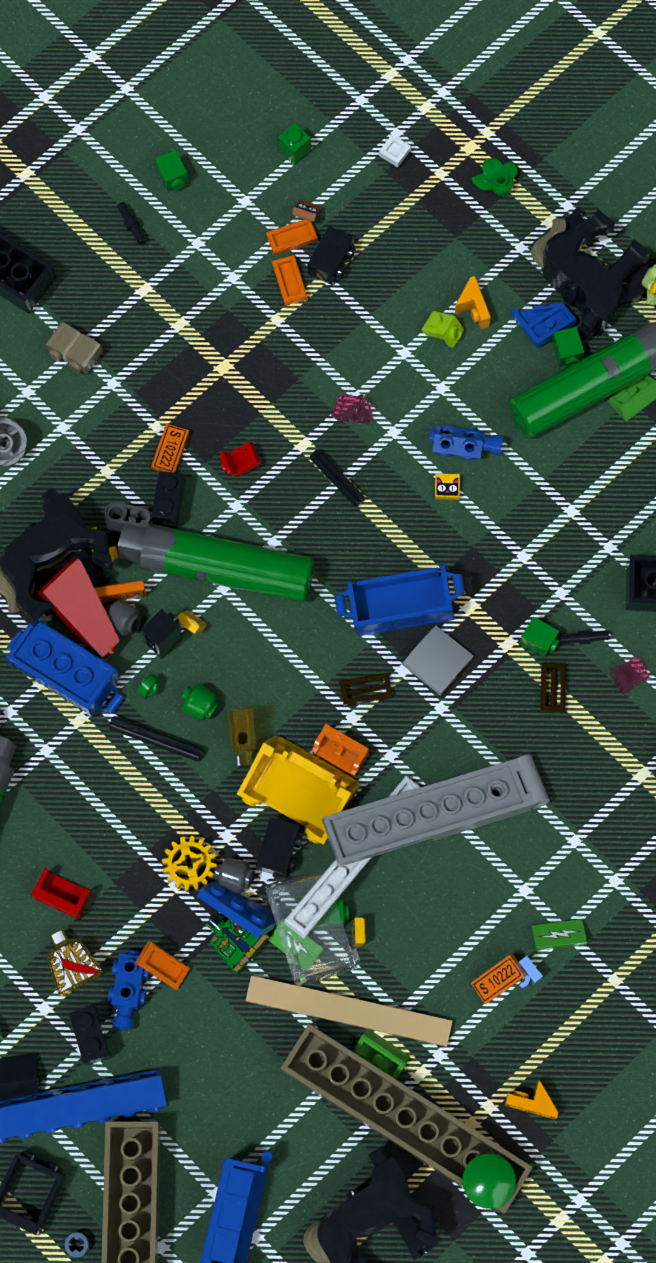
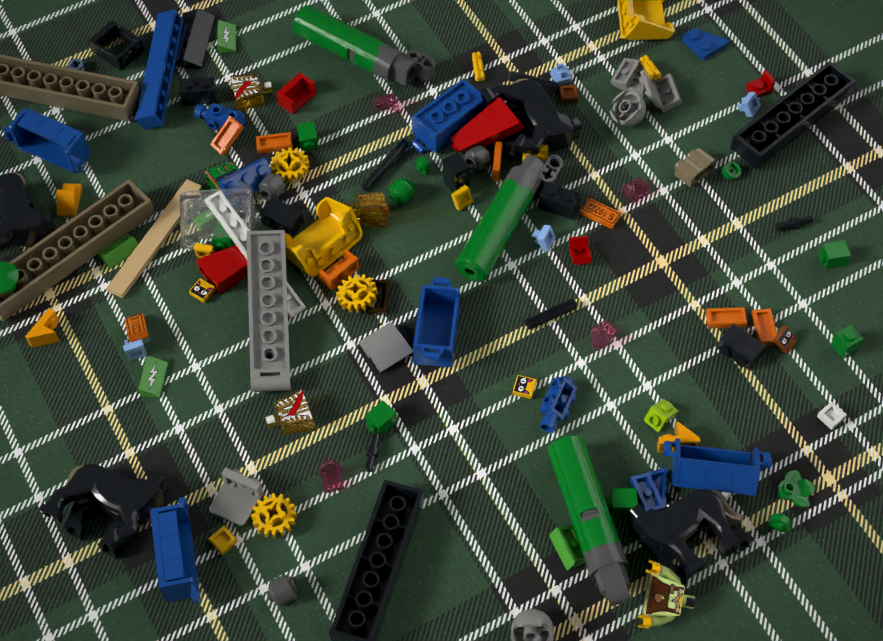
camera: 105 degrees right, 15 degrees down
(49, 763) = (386, 101): none -> clear pink tile
(67, 305) = (731, 171): none -> green tile
(122, 415) = (635, 189): none -> clear pink tile
(136, 854) = (307, 136): none -> green brick
(151, 901) = (274, 142): none -> orange tile
(228, 507) = (544, 237): none -> light blue tile
(317, 1157) = (68, 200): none -> light orange slope
(374, 893) = (224, 268): none -> red slope
(383, 711) = (357, 293): none -> yellow gear
(414, 918) = (202, 290): none -> tile
(505, 251) = (716, 468): none -> blue container
(545, 186) = (779, 522): none -> green tile
(552, 708) = (338, 428): dark brown tile -> none
(563, 743) = (292, 414): none -> torso

